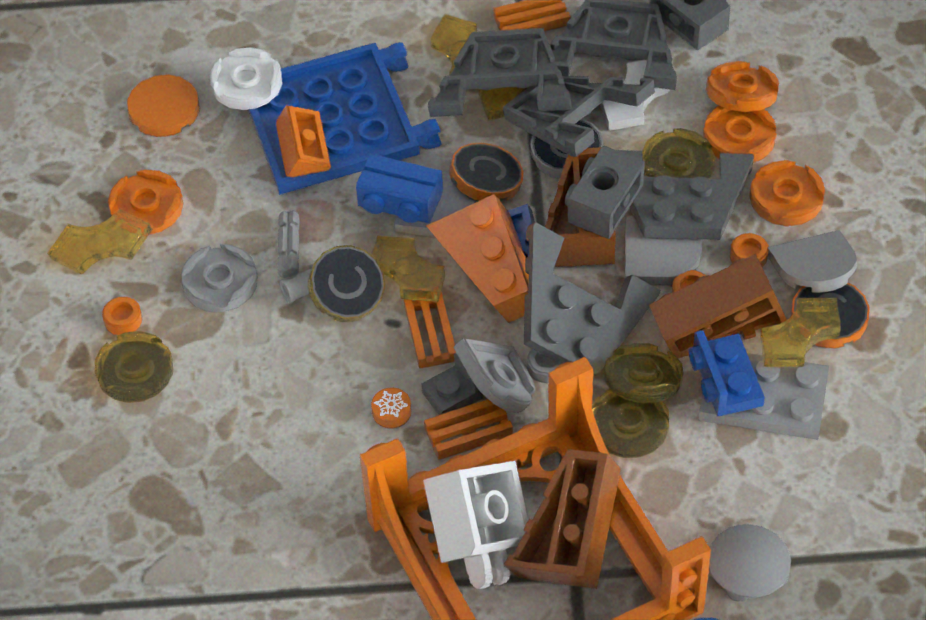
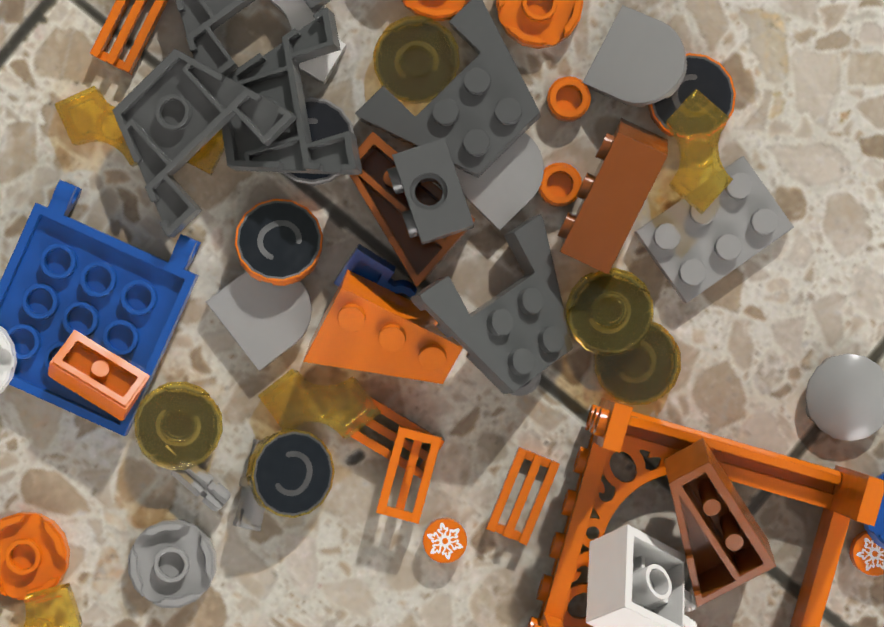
camera: 50 degrees left, 35 degrees up
(313, 209) = (178, 426): none -> clear yellow tile
(399, 189) = (236, 342): blue brick -> none
(417, 350) = (398, 511): none -> orange tile
(451, 389) = (474, 473): dark grey bracket -> none
(497, 373) = (507, 436): light grey tile -> none
(726, 374) = (685, 255): blue bracket -> none

